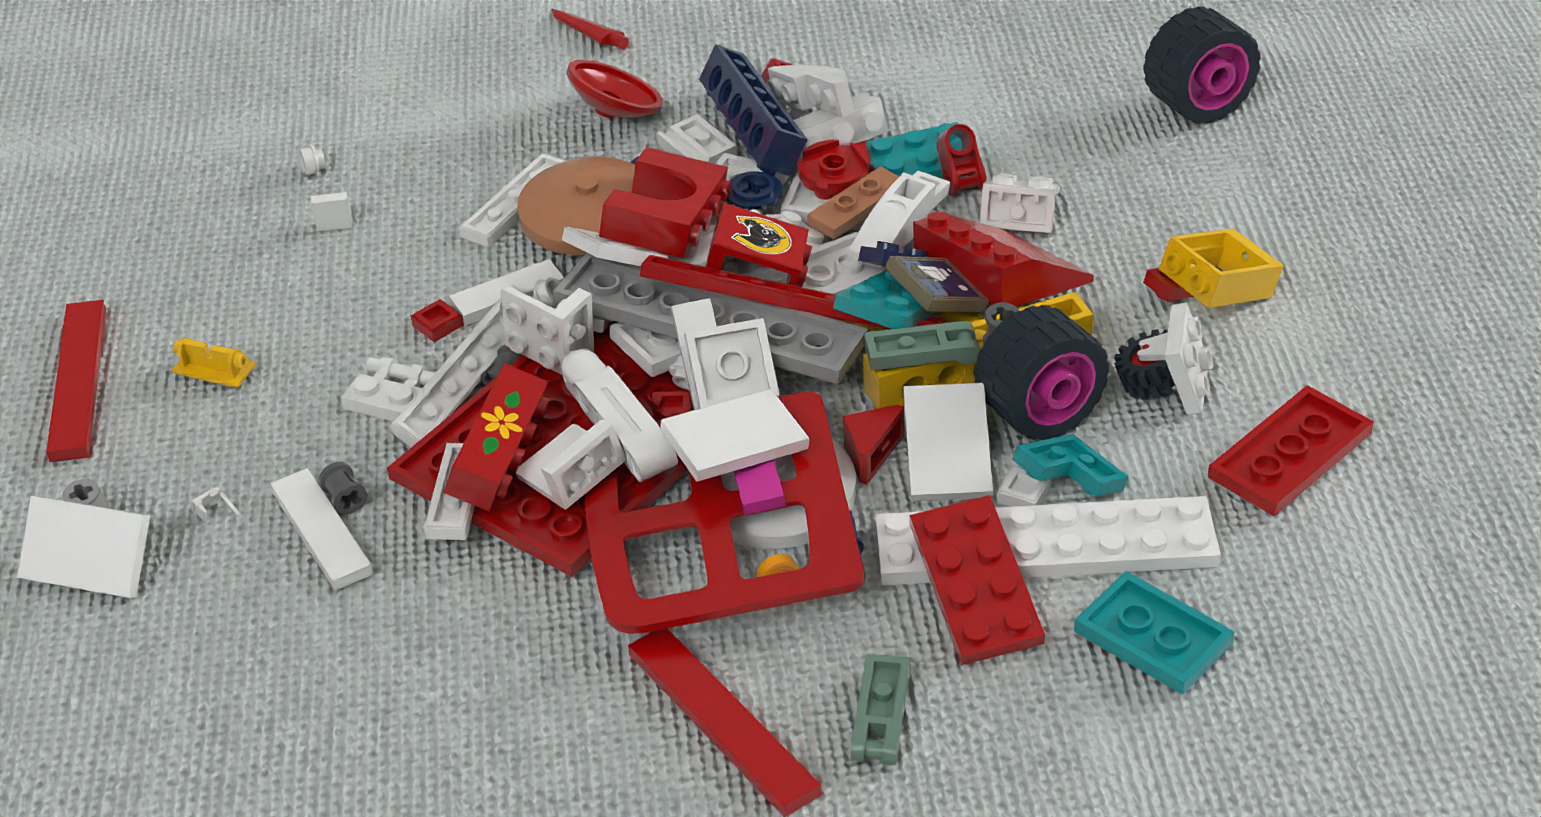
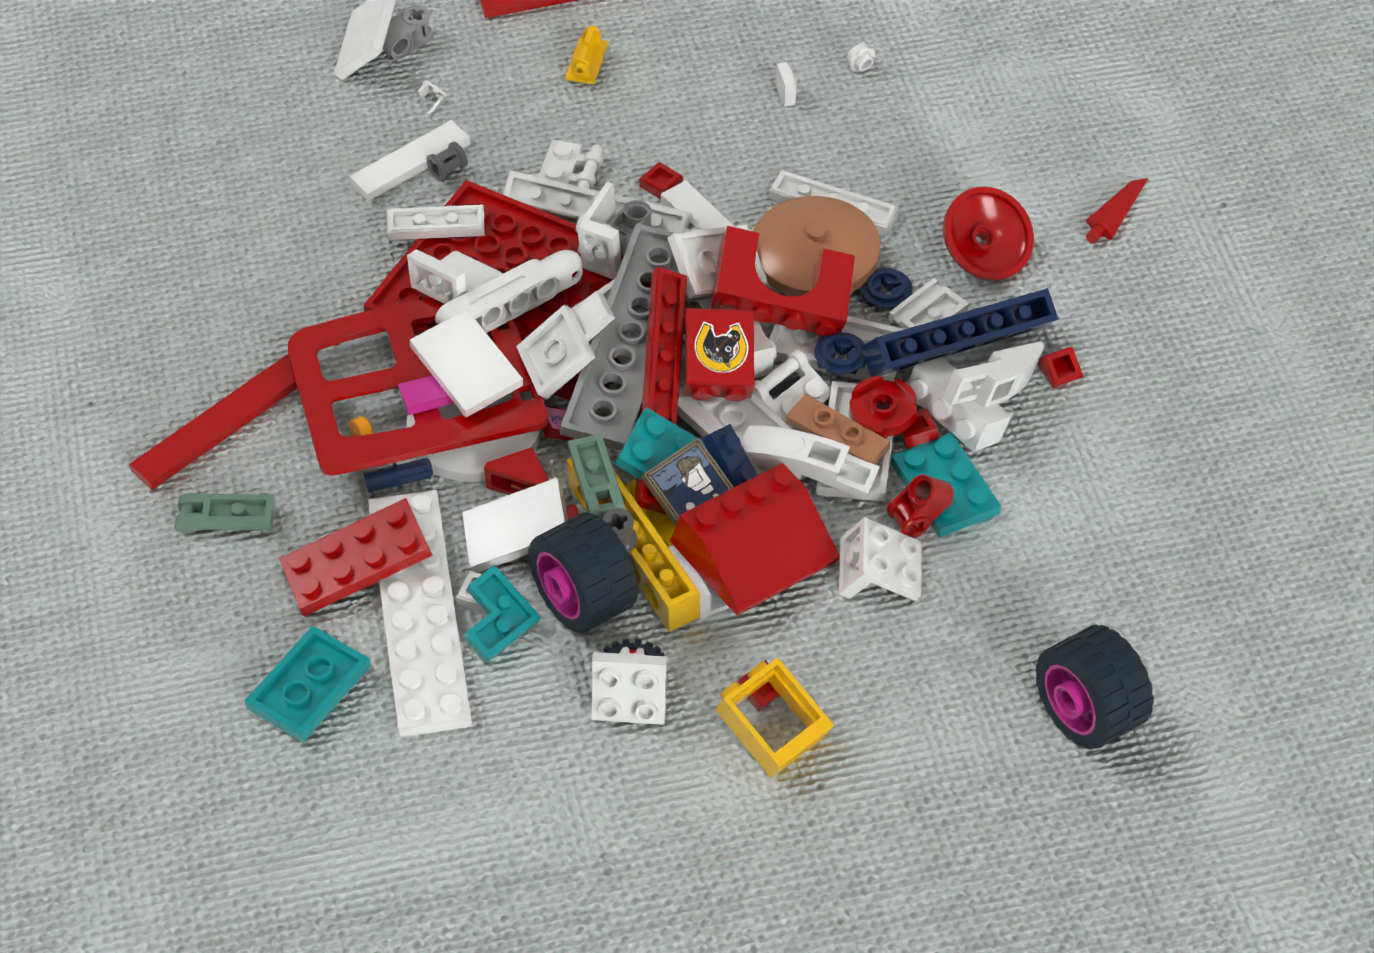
camera: 80 degrees right, 10 degrees up
(496, 438) = (477, 227): red brick -> none
(1290, 450) = (536, 782): red plate -> none

